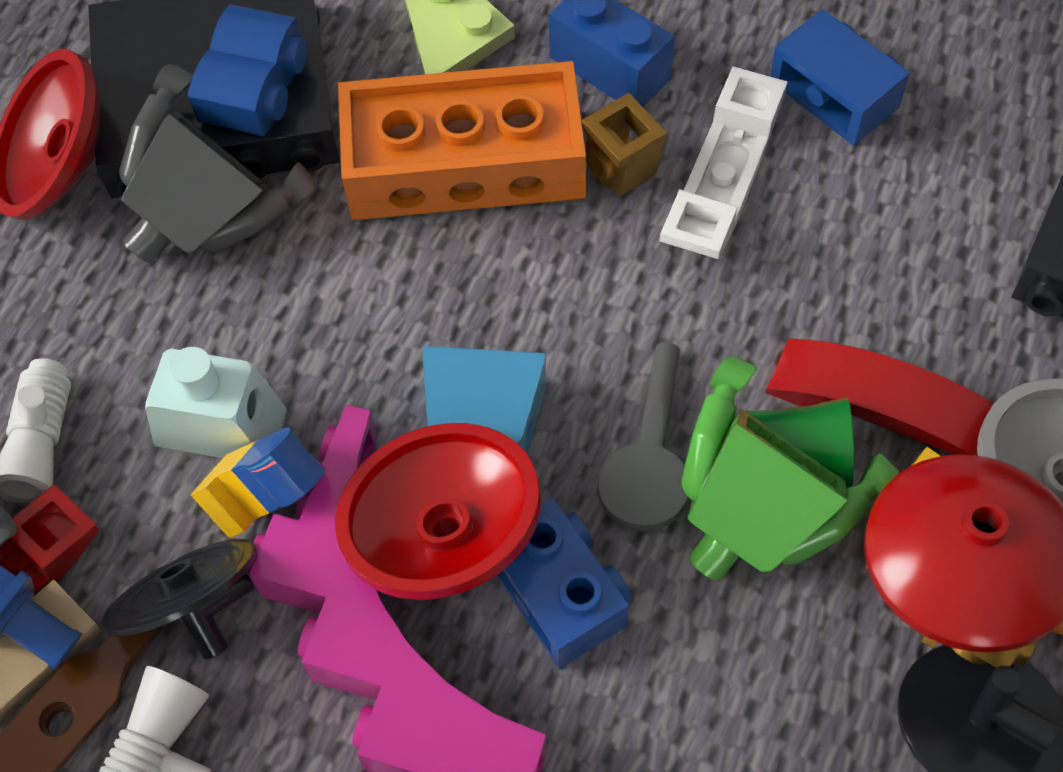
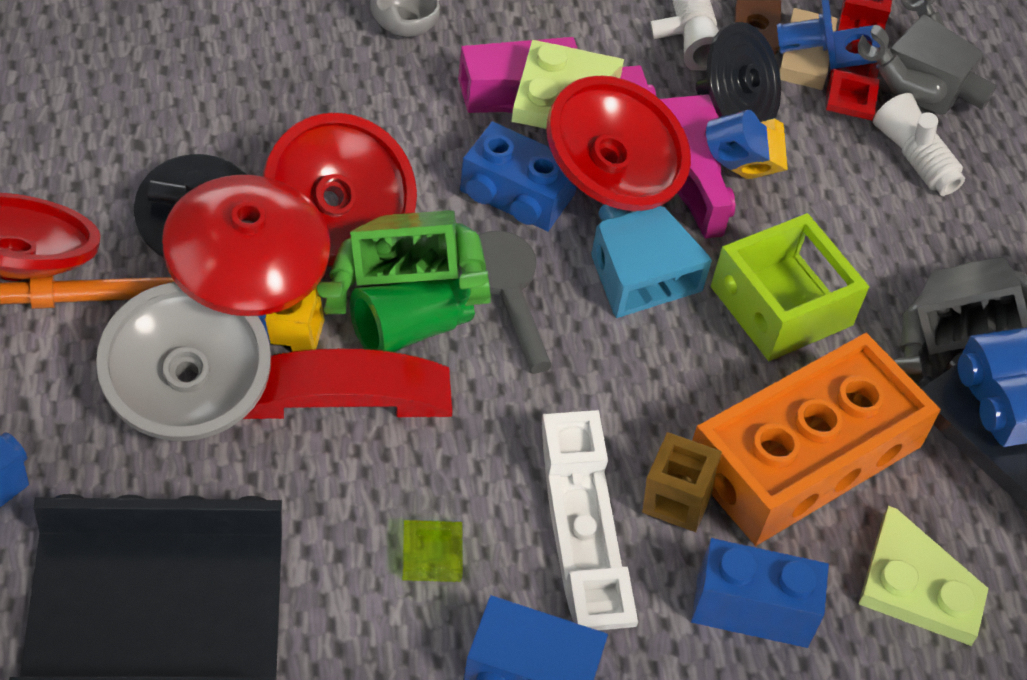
camera: 140 degrees right, 10 degrees down
(205, 401) = (819, 177): light aqua torso -> none
(358, 293) = (778, 293): none -> lime piece
(438, 659) = (549, 71): none -> yellowish green wing
(806, 633) = (352, 161): none -> red dish
(876, 214) = (432, 551): none -> clear neon green tile

